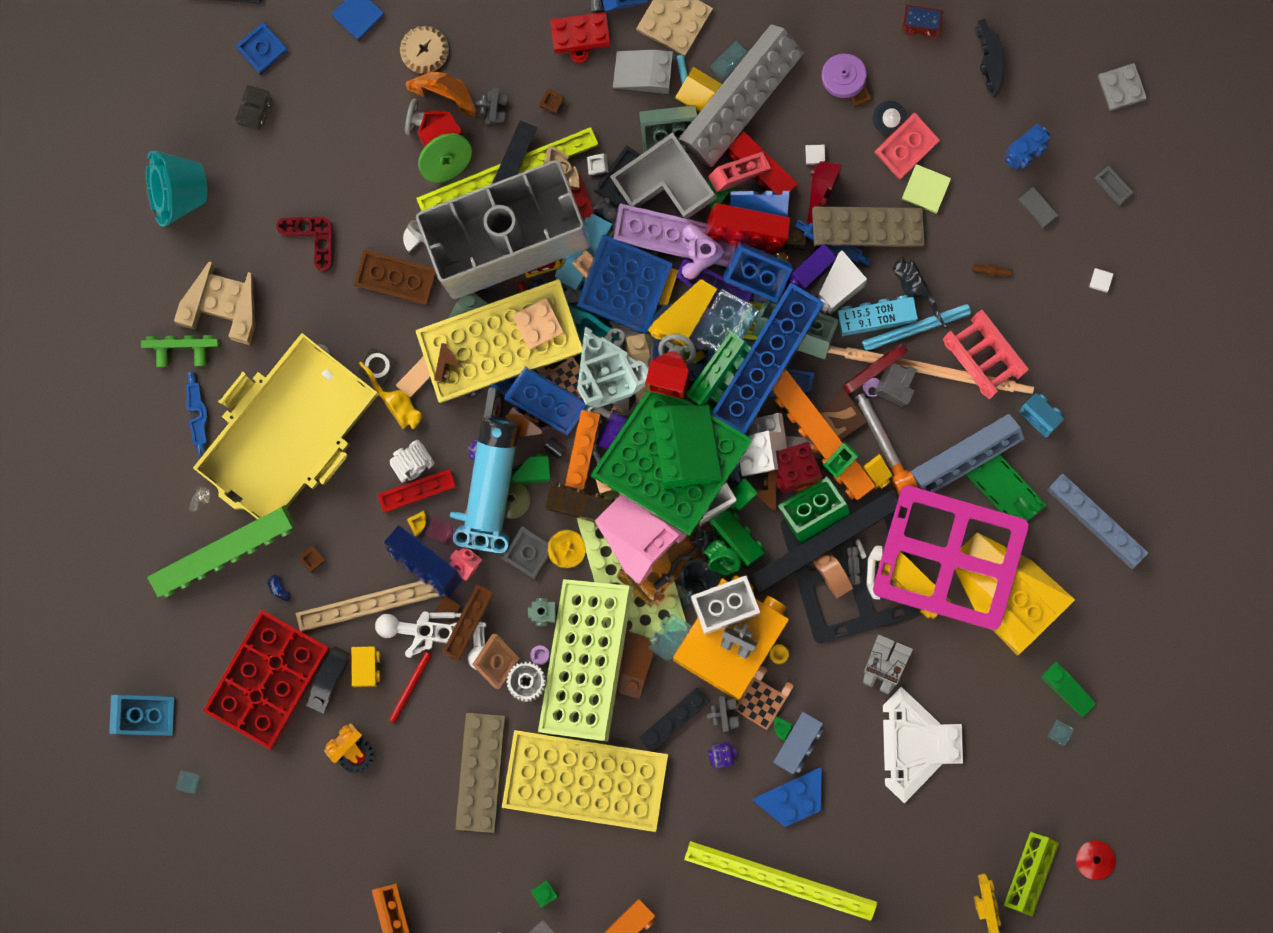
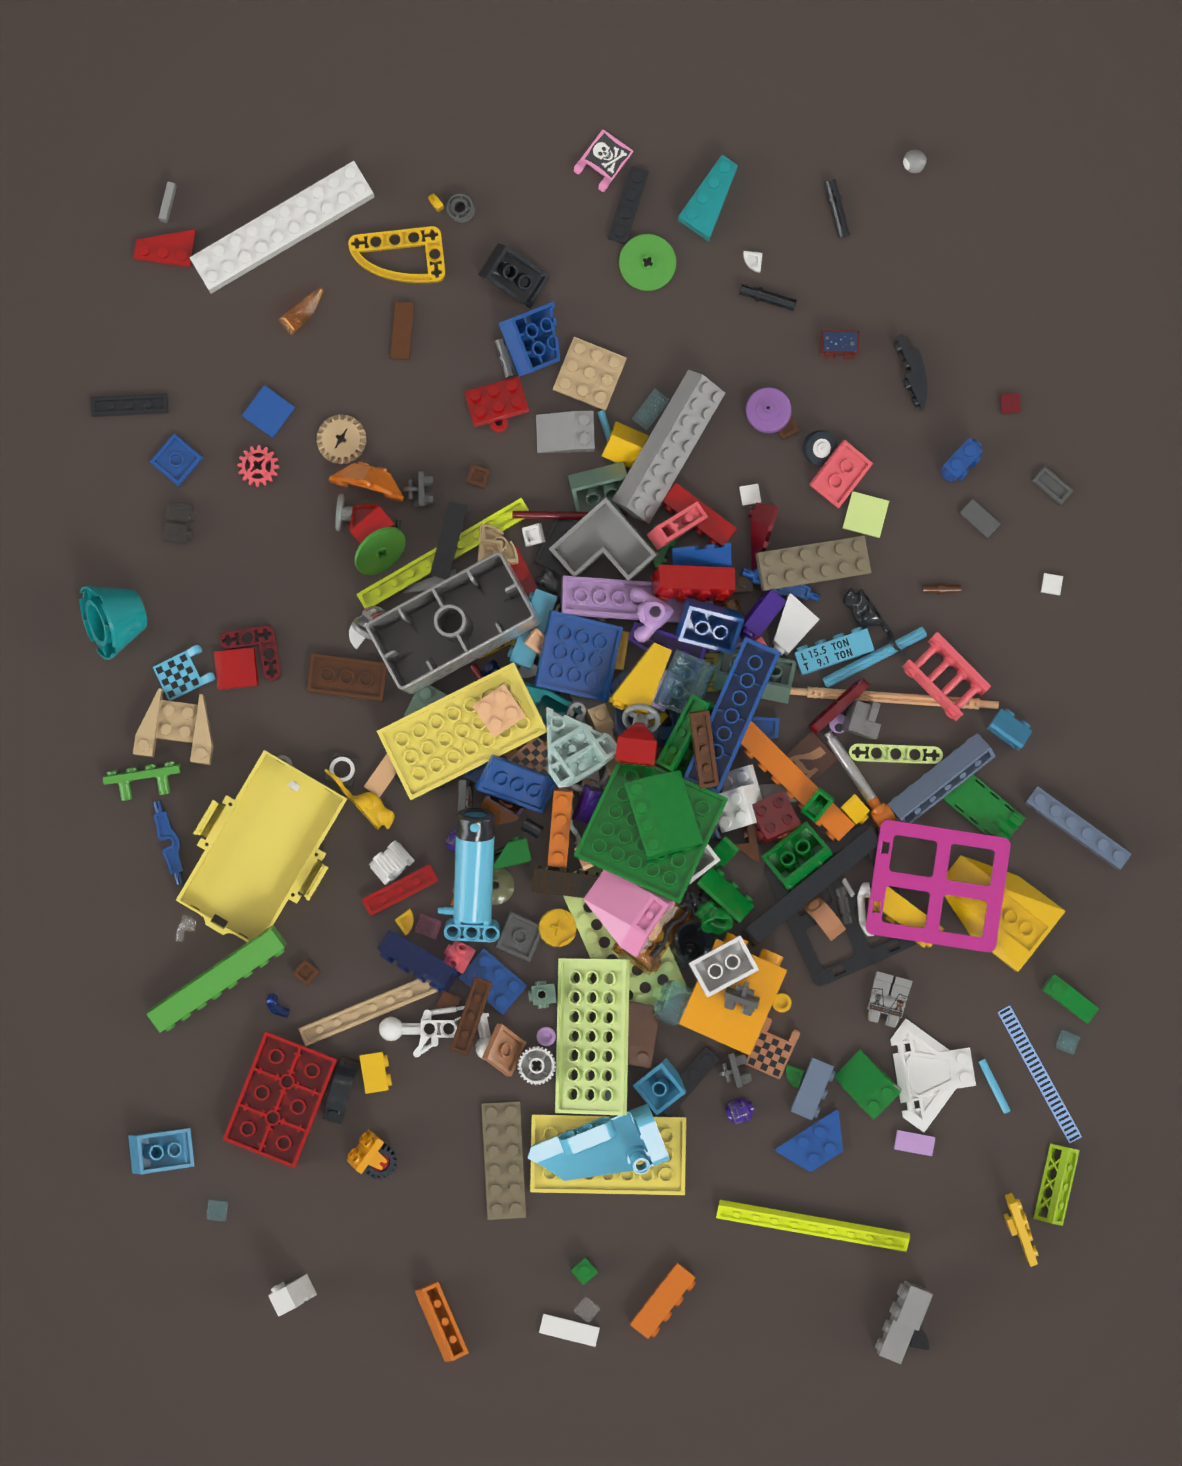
camera: 15 degrees left, 5 degrees up
(233, 254) = (180, 675): none -> medium azure flag
(246, 876) = (289, 1296): none -> white wedge
(288, 254) = (236, 668): none -> red slope
(345, 59) = (265, 459): none -> coral gear
(409, 688) = (422, 1086): red bar -> none
(446, 359) = (412, 756): reddish brown slope -> none
(506, 599) = (505, 985): none -> blue plate
(581, 771) = (604, 1147): none -> medium azure panel
(613, 146) = (550, 515): none -> dark red bar
(646, 719) = (660, 1086): none -> dark azure slope
(734, 386) = (703, 748): none -> reddish brown plate
(854, 746) = (867, 1084): none -> green slope
(893, 812) = (914, 1143): none -> lavender tile
(934, 421) = (904, 749): none -> yellowish green beam
(981, 766) = (994, 1086): none -> medium azure bar
(1028, 761) = (1039, 1074): none -> light blue sticker
(1082, 101) = (1010, 403): none -> dark red tile
(1086, 864) = (1107, 1161): red dish -> none
(1122, 87) = (1048, 383): light grey plate -> none

